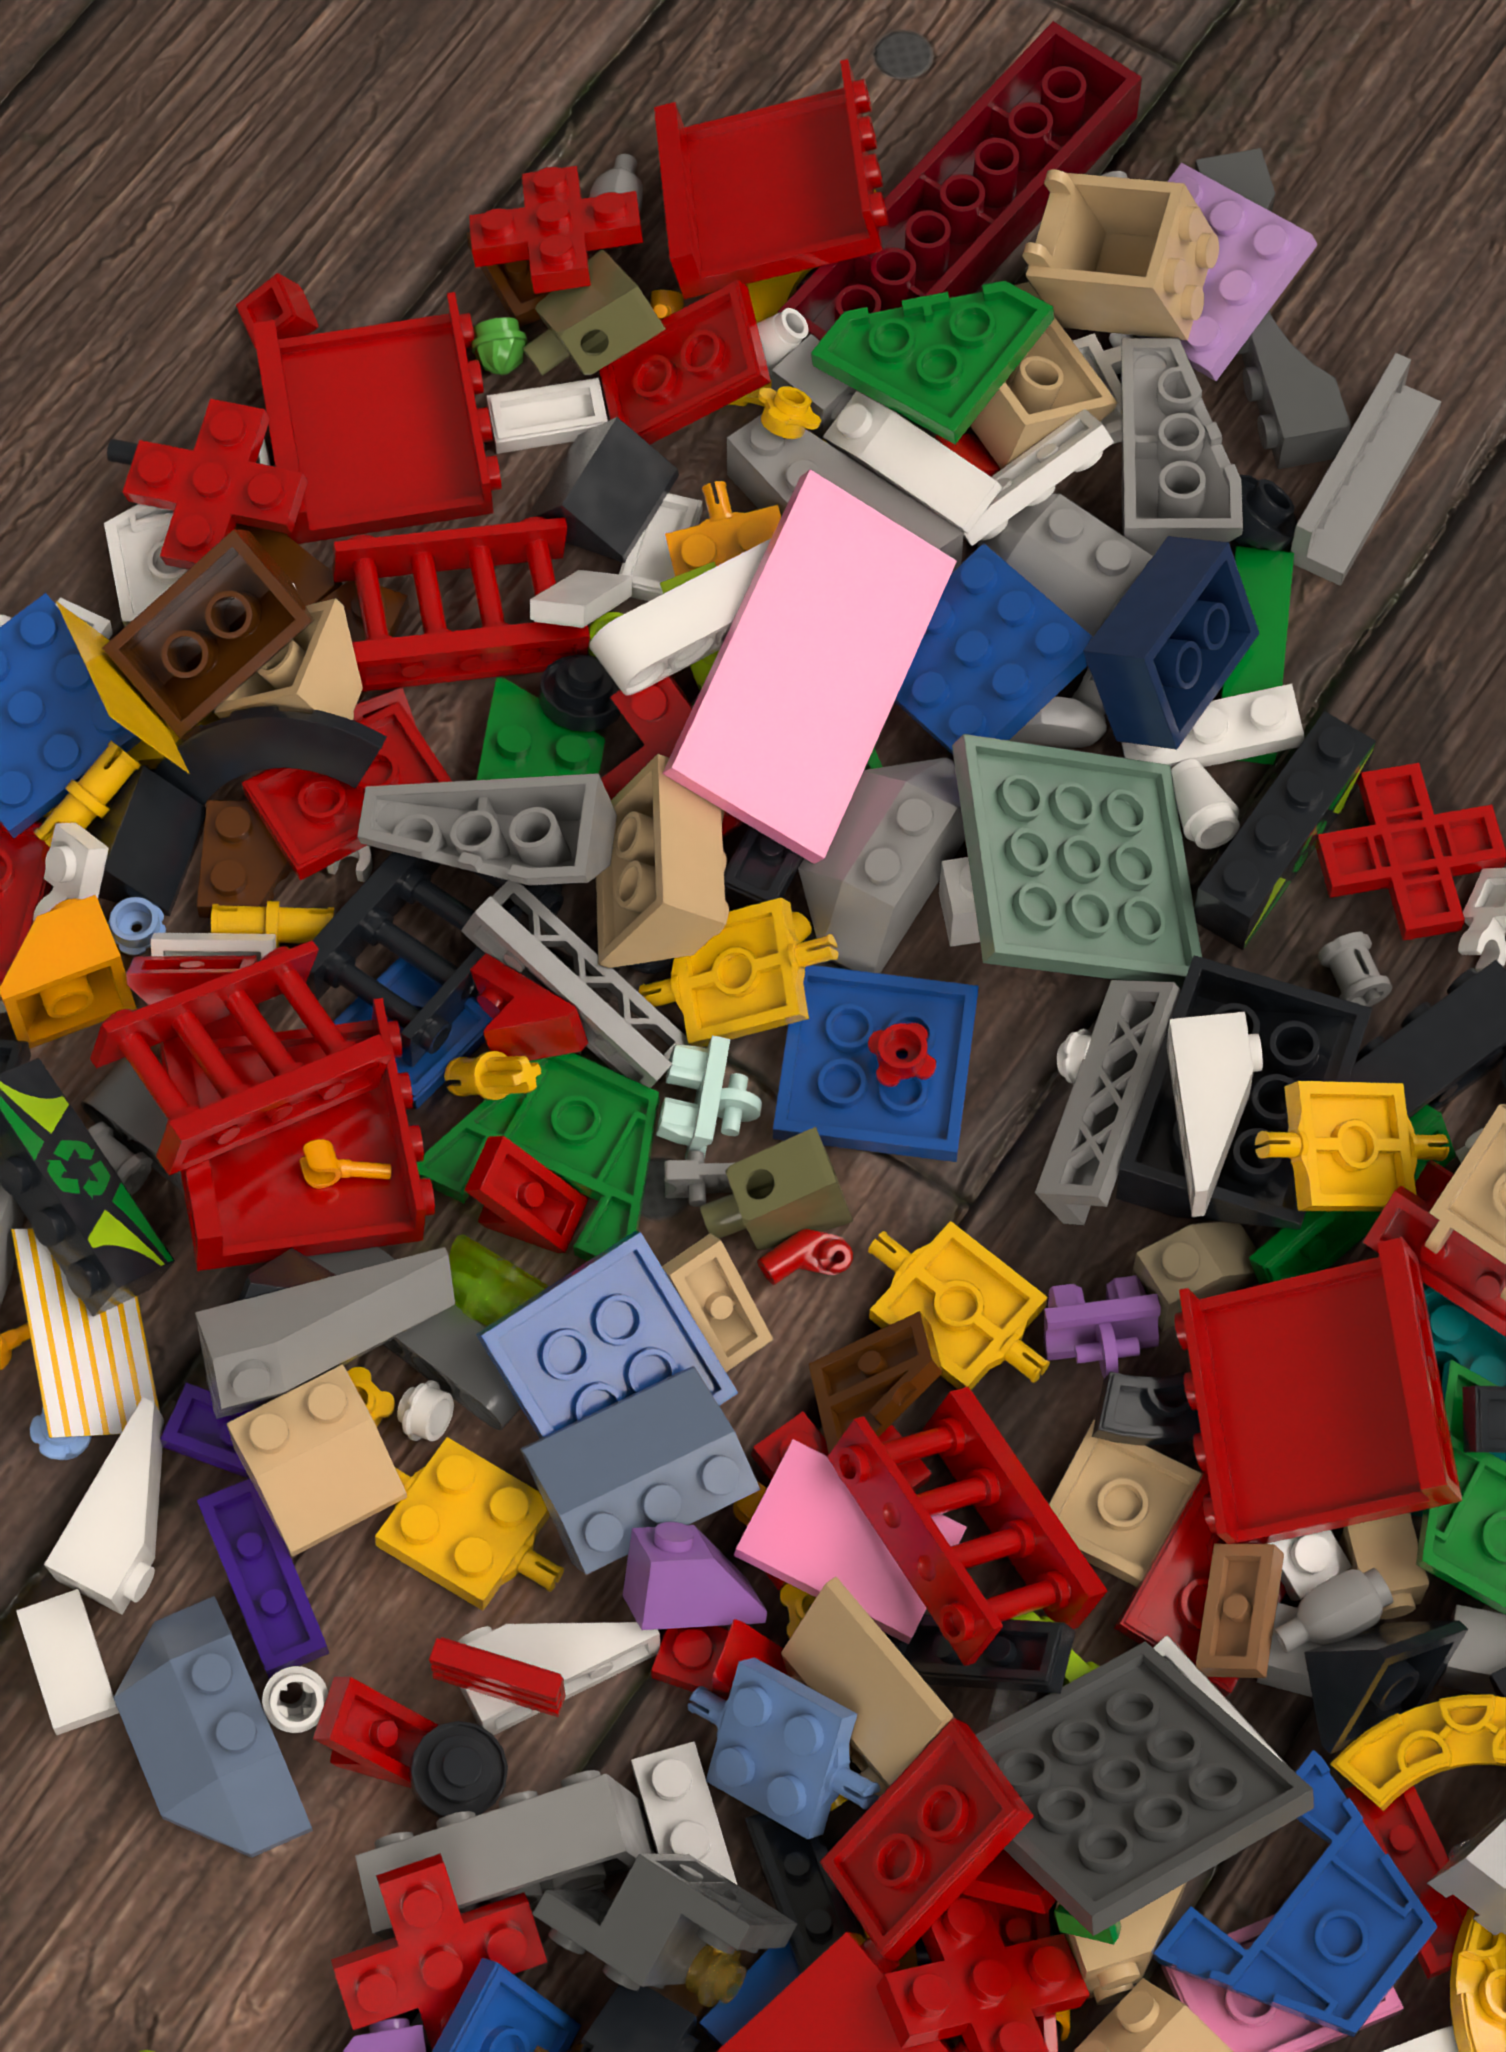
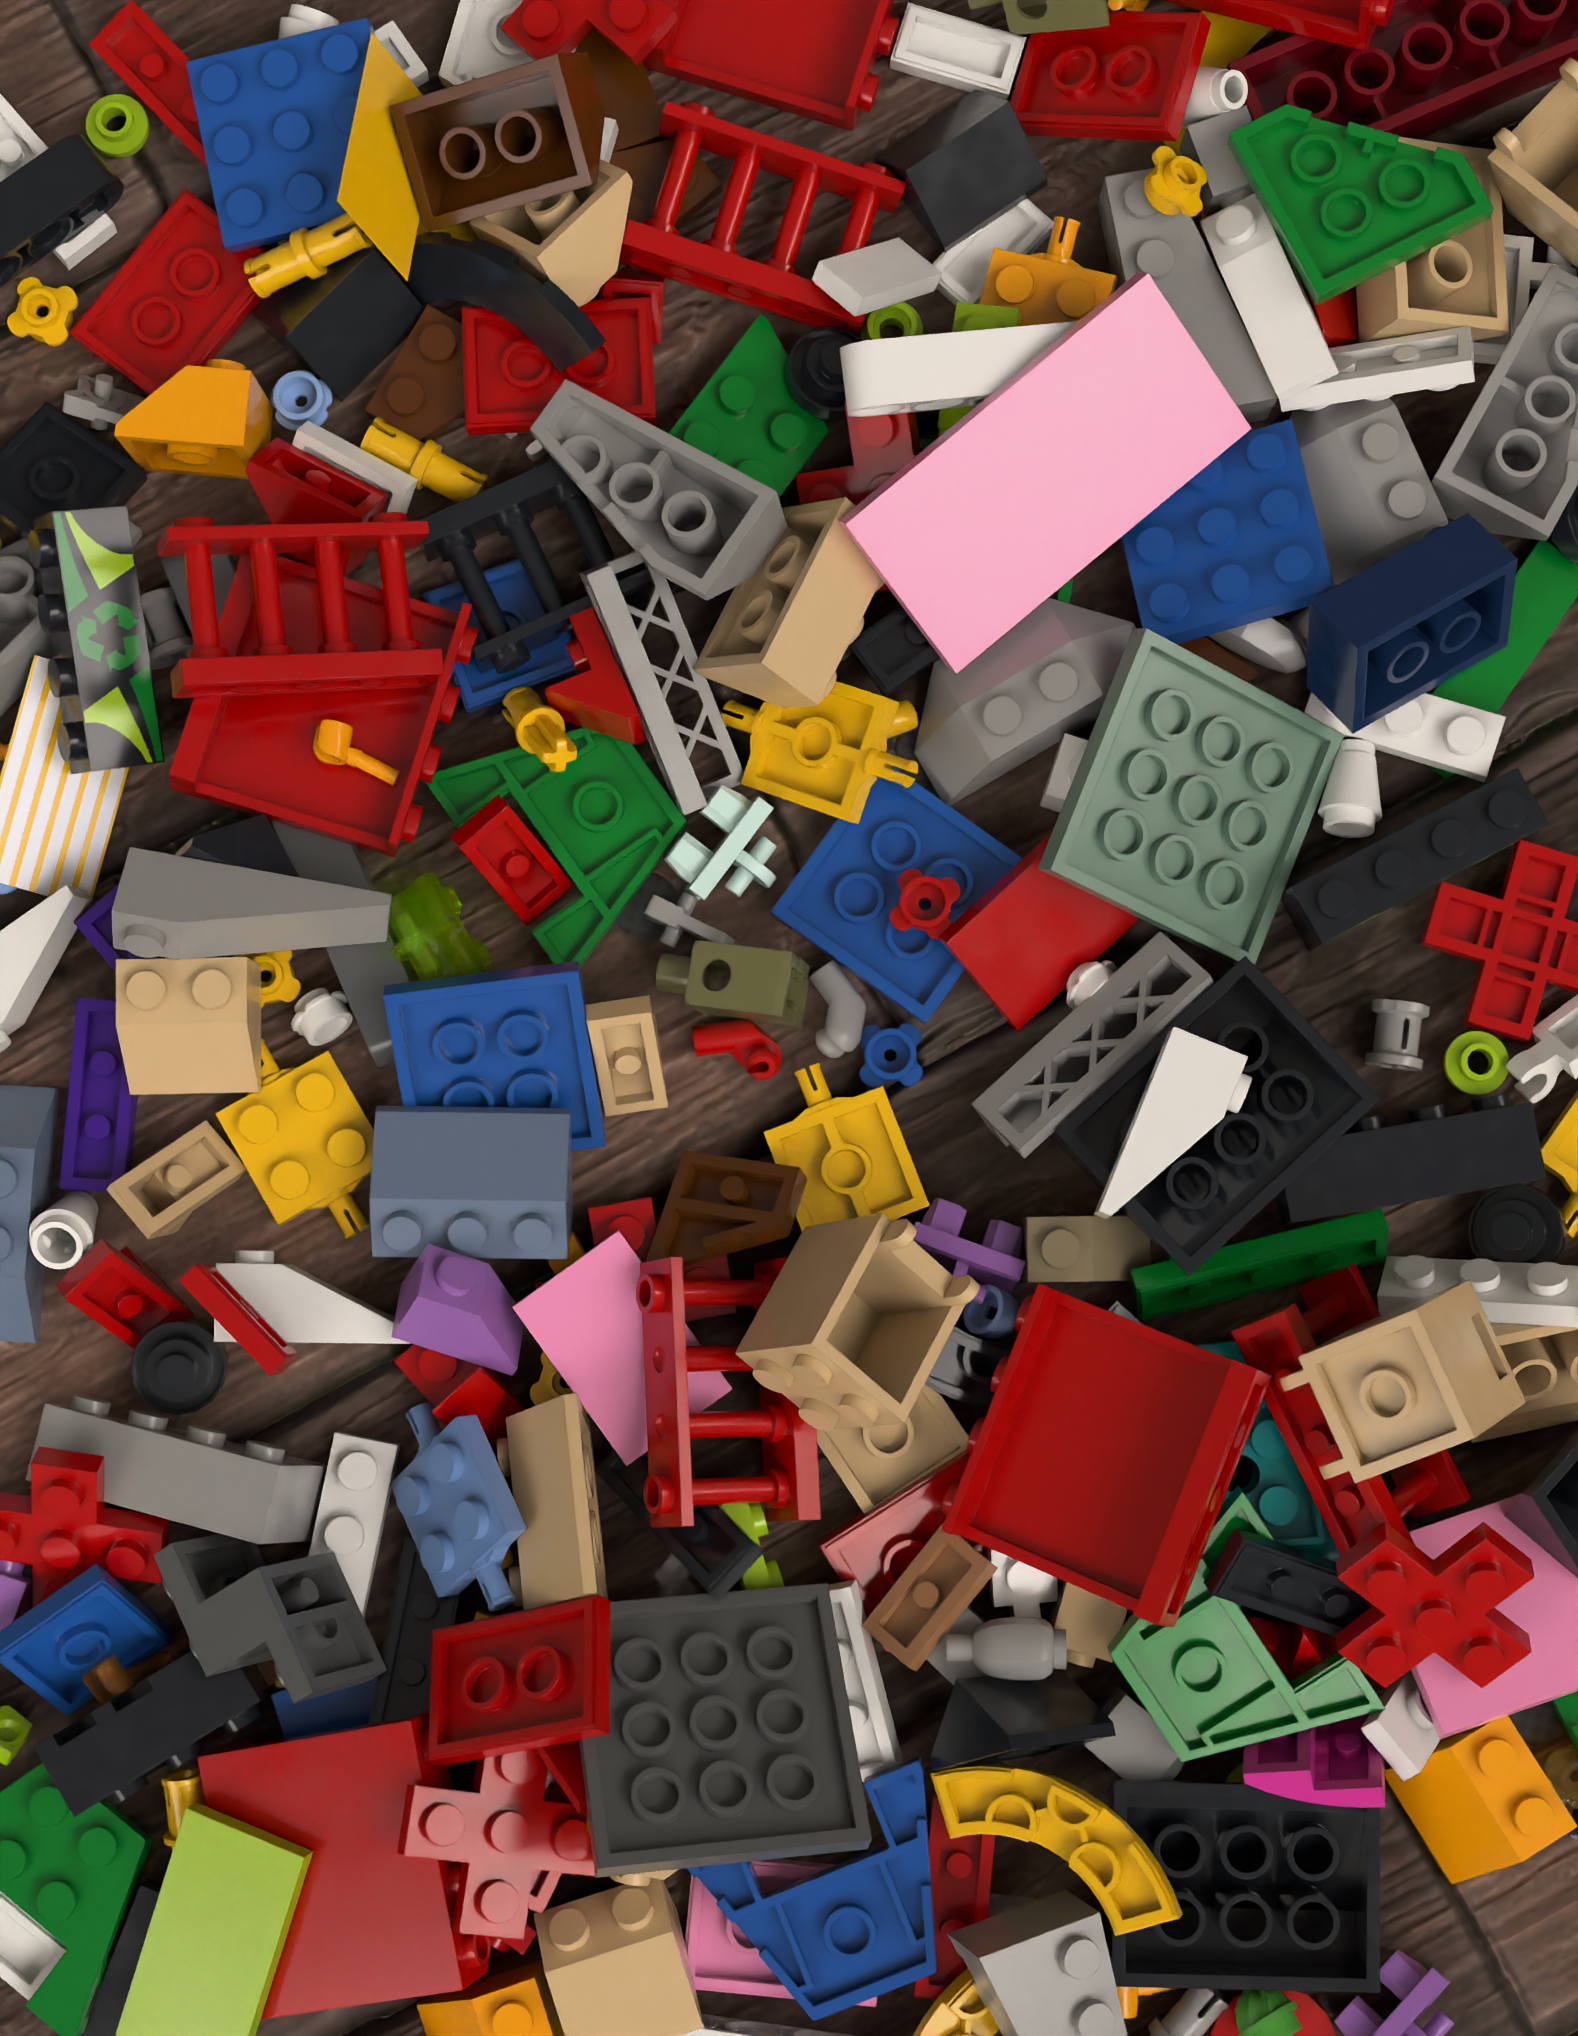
camera: 30 degrees right, 20 degrees up
(72, 866) = (261, 323): white plate -> none
(372, 1609) = (177, 1181): none -> tan slope
(882, 1183) = (845, 1011): none -> light grey arm
(941, 1182) = (903, 1068): none -> blue plate
(1008, 1036) = (1031, 937): none -> red tile
(1043, 1399) = (855, 1323): none -> tan container
(1153, 1352) = (1002, 1325): none -> light blue hinge
(1349, 1144) = (1277, 1229): yellow plate -> none
(1429, 978) = (1457, 1068): none -> lime plate

